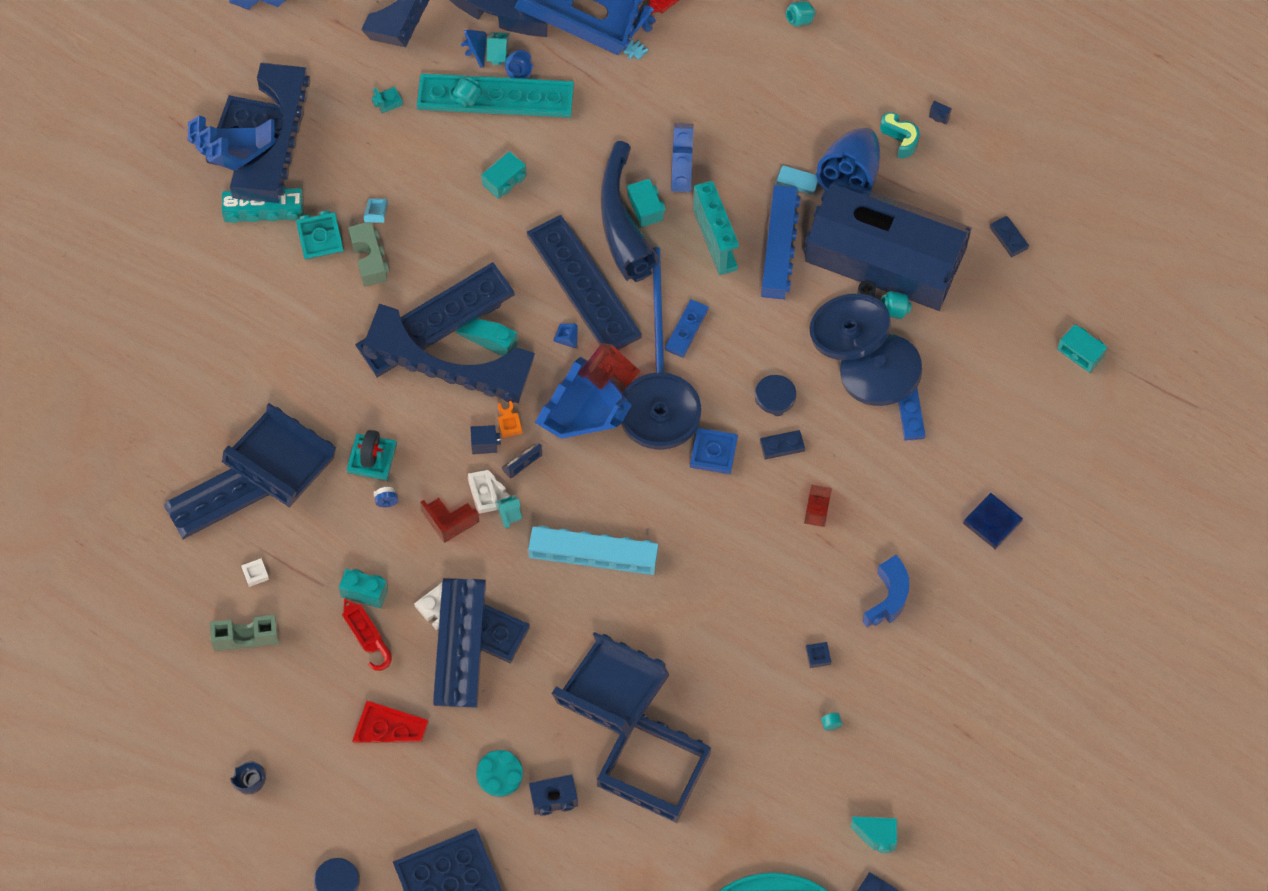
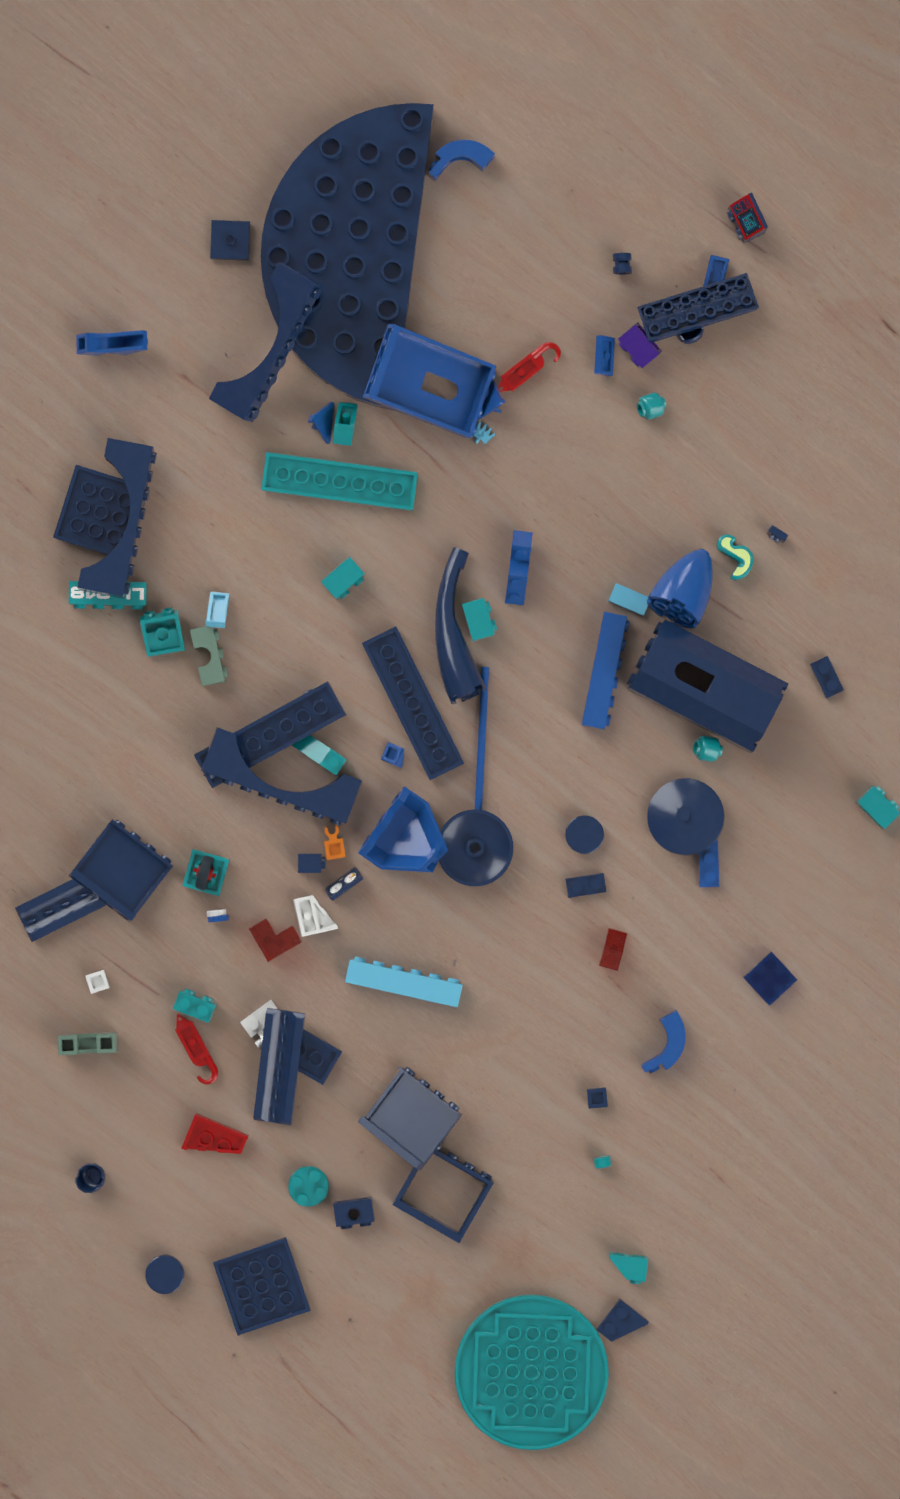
camera: 10 degrees right, 25 degrees up
(231, 145) = (78, 534): blue panel -> none
(387, 99) = (232, 477): teal bracket -> none
(467, 92) = (311, 484): teal head -> none
(509, 510) = (328, 937): teal panel -> none
(519, 64) = (364, 450): blue hair -> none
(606, 363) = (429, 799): clear red panel -> none
(686, 328) = (507, 756): blue plate -> none
(714, 451) = (521, 889): blue plate -> none
(715, 227) = (543, 657): teal panel -> none
(850, 326) = (661, 772): dark blue dish -> none
(867, 284) = (678, 723): black bush -> none

